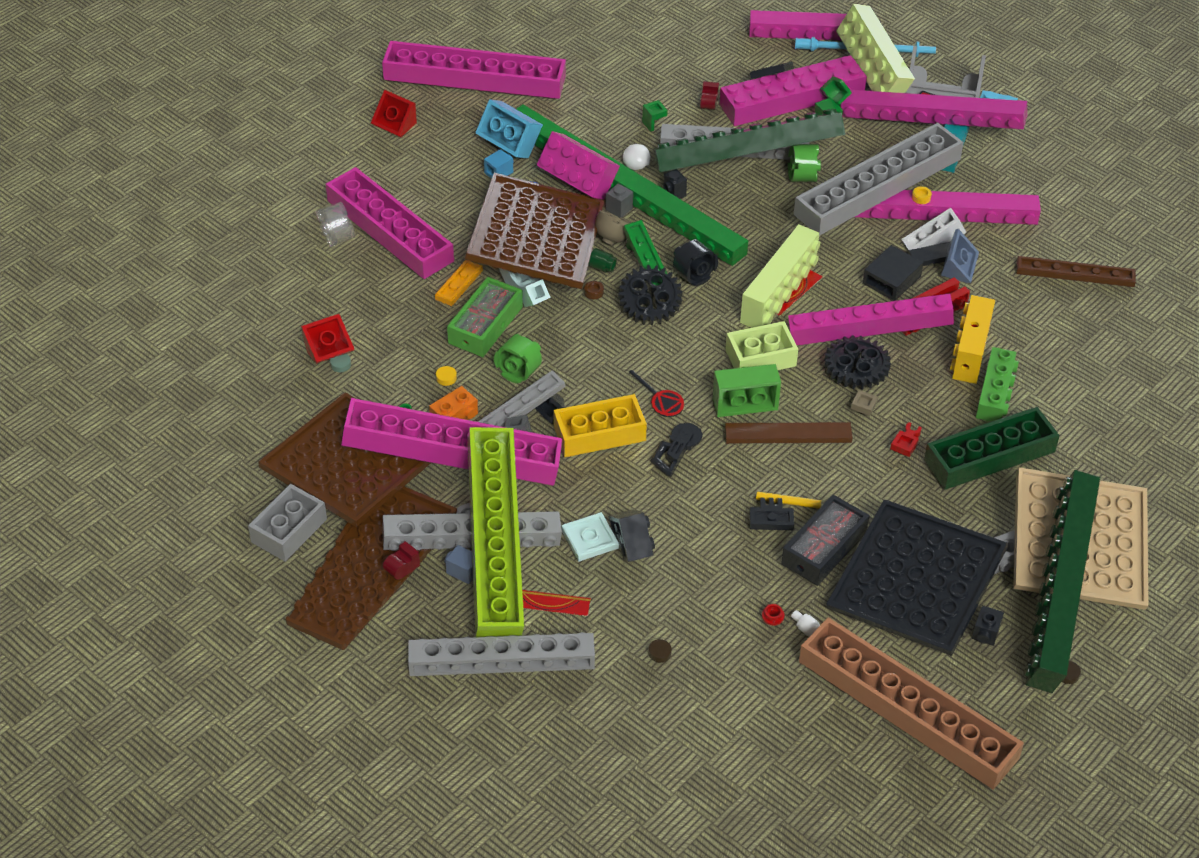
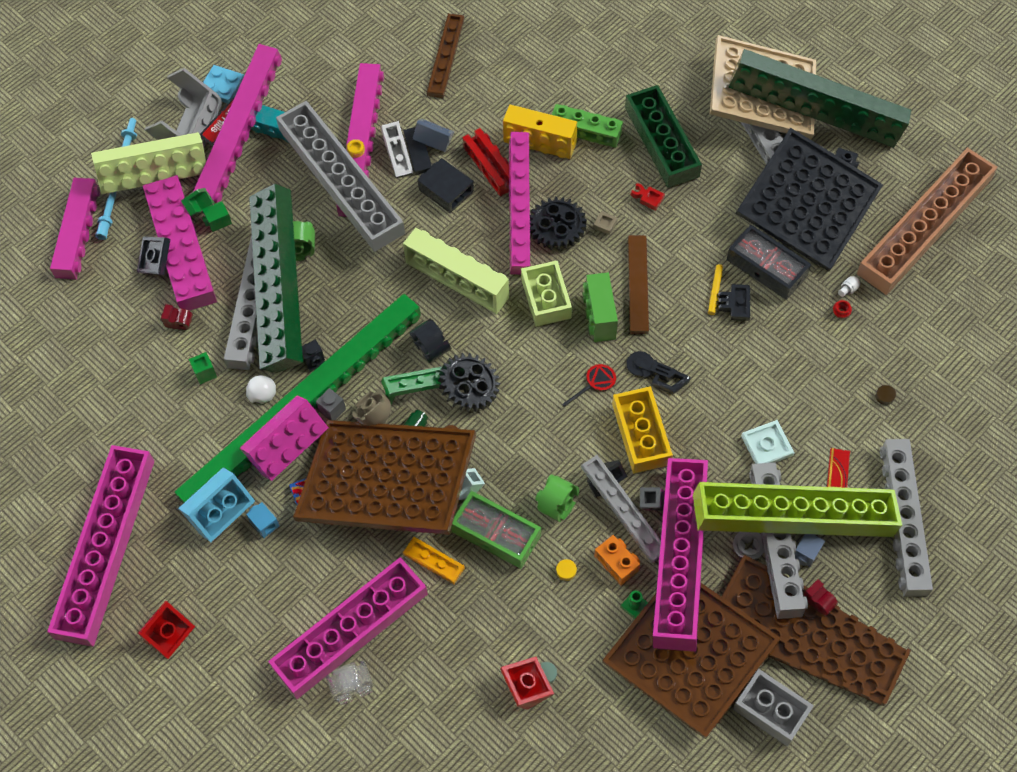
camera: 85 degrees left, 15 degrees up
(633, 534) = (770, 405): black brick -> none

